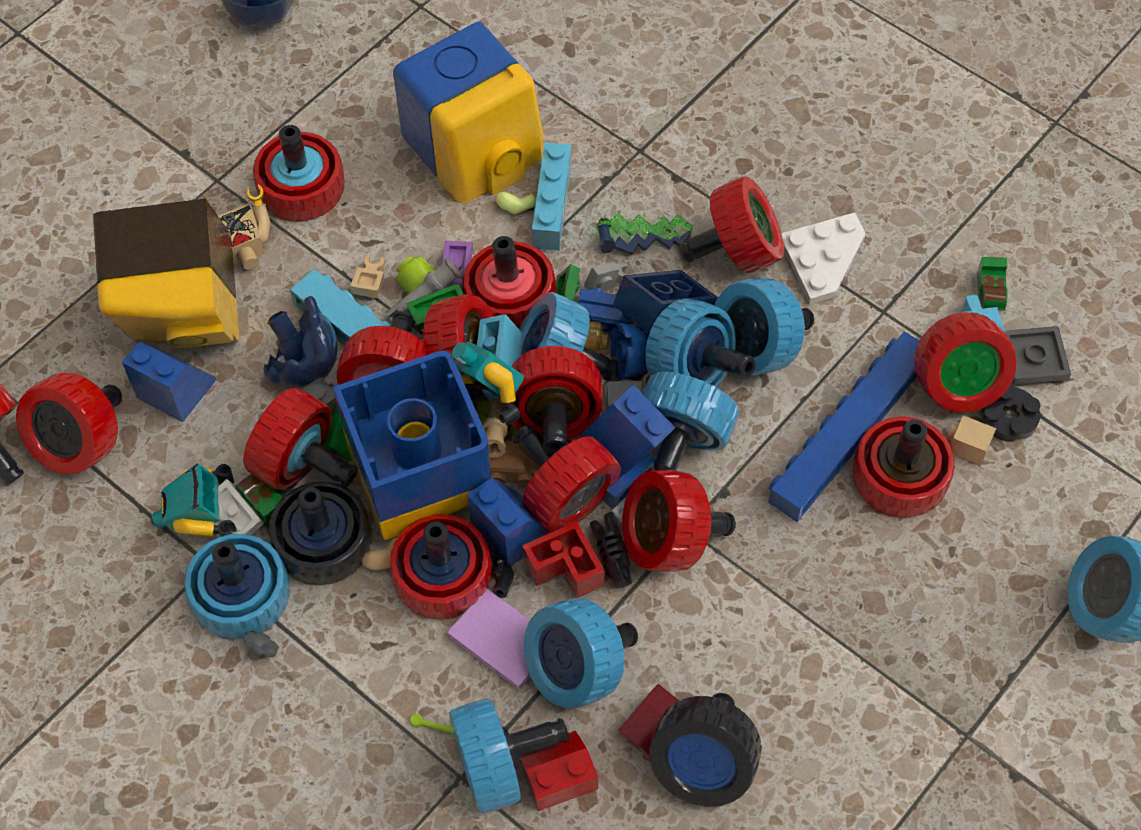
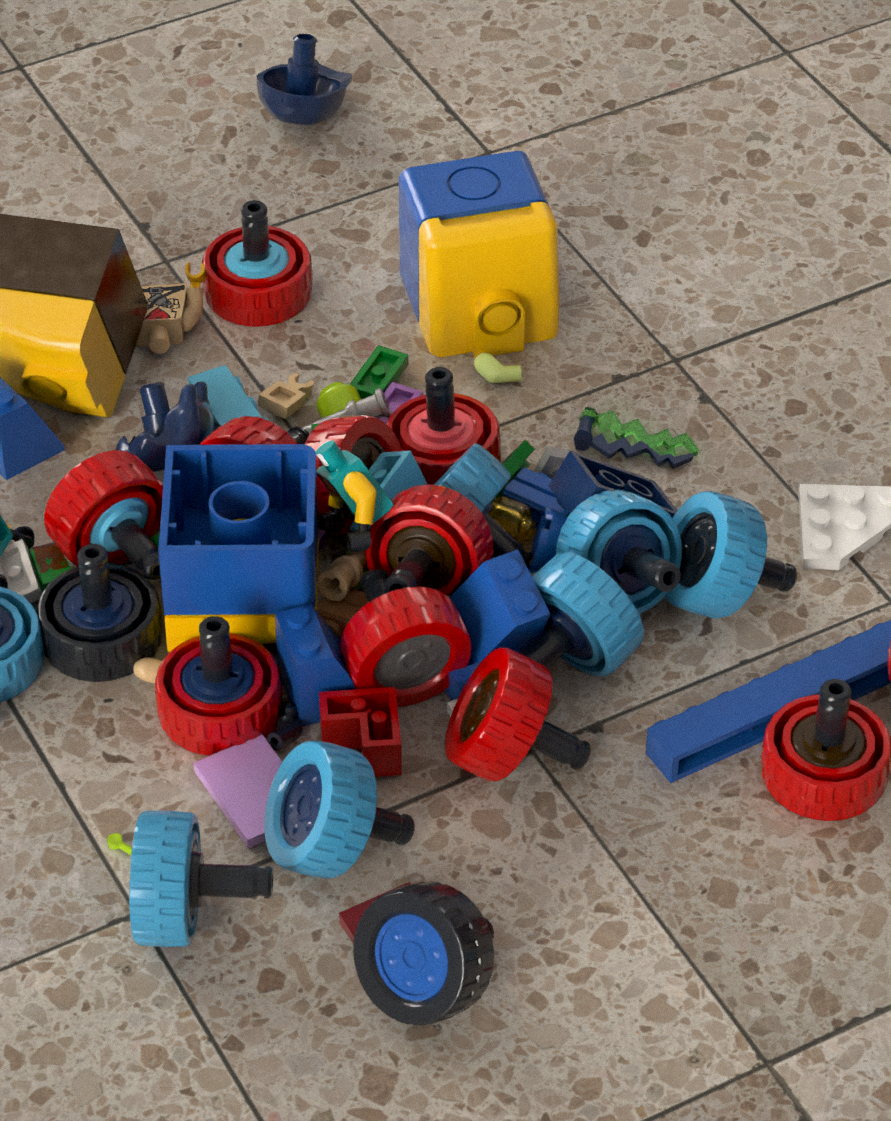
camera: 20 degrees right, 15 degrees down
(430, 236) = (380, 371): none -> green plate
(551, 196) = (541, 372): medium azure brick -> none
(560, 773) = (249, 940): red slope -> none
(612, 550) = (428, 740): black hinge -> none
(742, 227) = (747, 451): red wheel -> none

